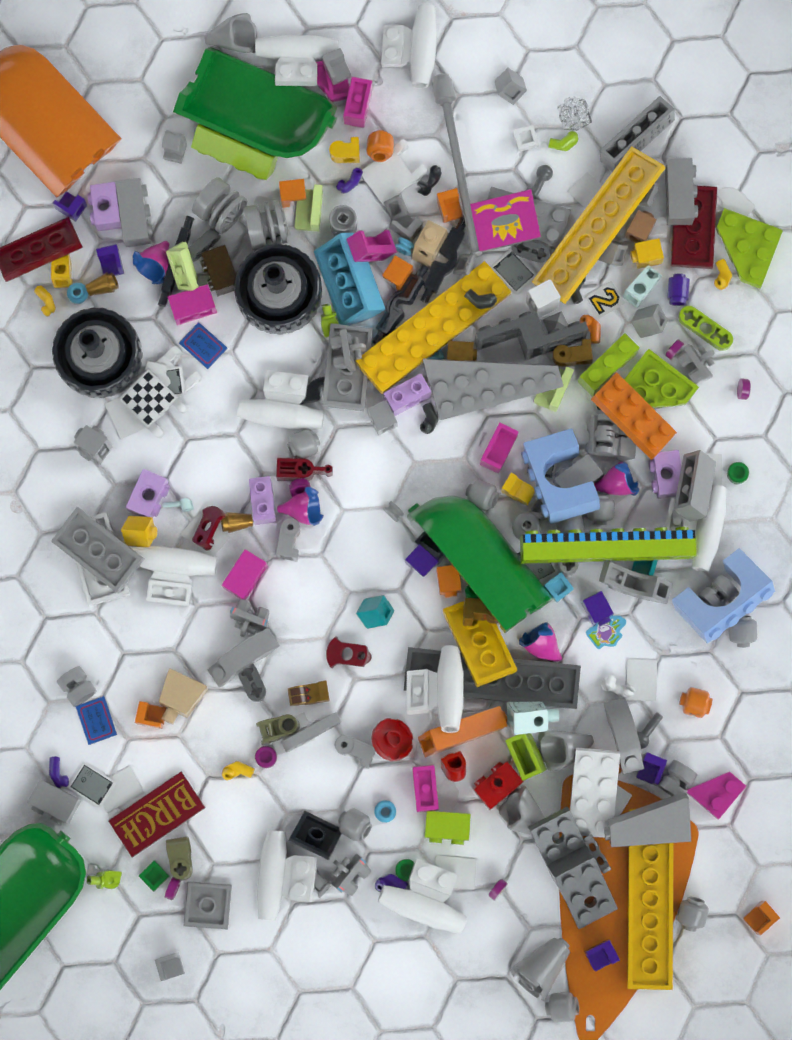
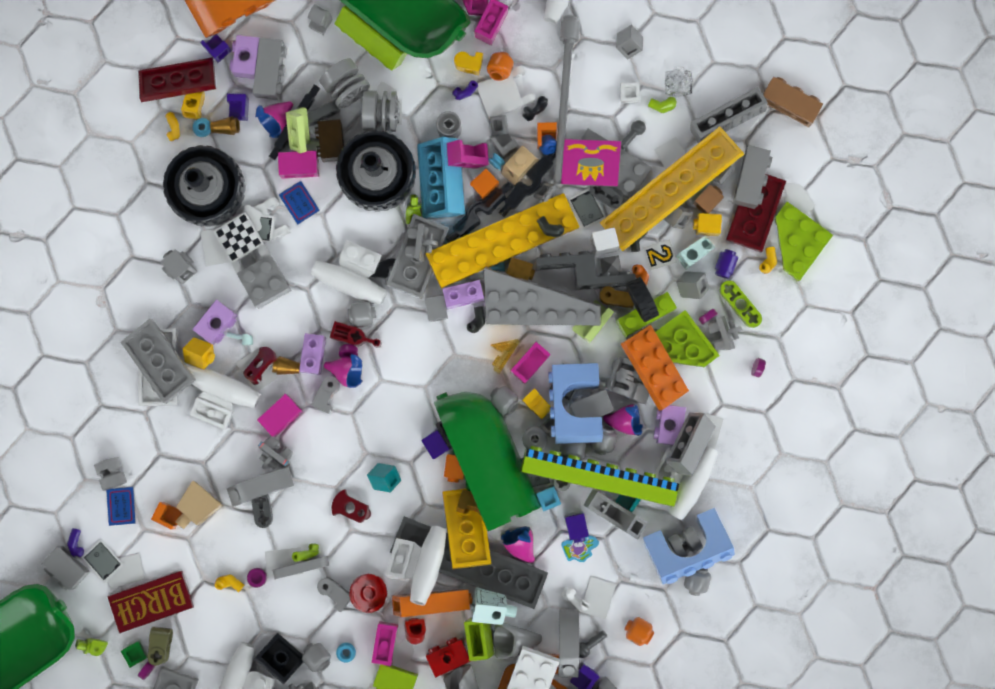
camera: 15 degrees right, 5 degrees up
(189, 437) = (264, 282): none -> light grey brick
(276, 728) = (270, 556): olive piece -> none
(292, 191) = (411, 86): orange panel -> none
(308, 719) = (305, 555): none -> lime arm
(309, 210) = (423, 105): yellowish green panel -> none
(309, 694) = (308, 533): pearl gold leg -> none
(393, 511) = (424, 394): light grey bush -> none
(455, 215) = (548, 145): none -> blue piece
(469, 441) = (505, 348): none -> clear yellow slope
(601, 345) = (642, 299): none -> black tyre
(700, 103) = (792, 101): none -> medium nougat brick
(738, 473) = (732, 439): green tile -> none

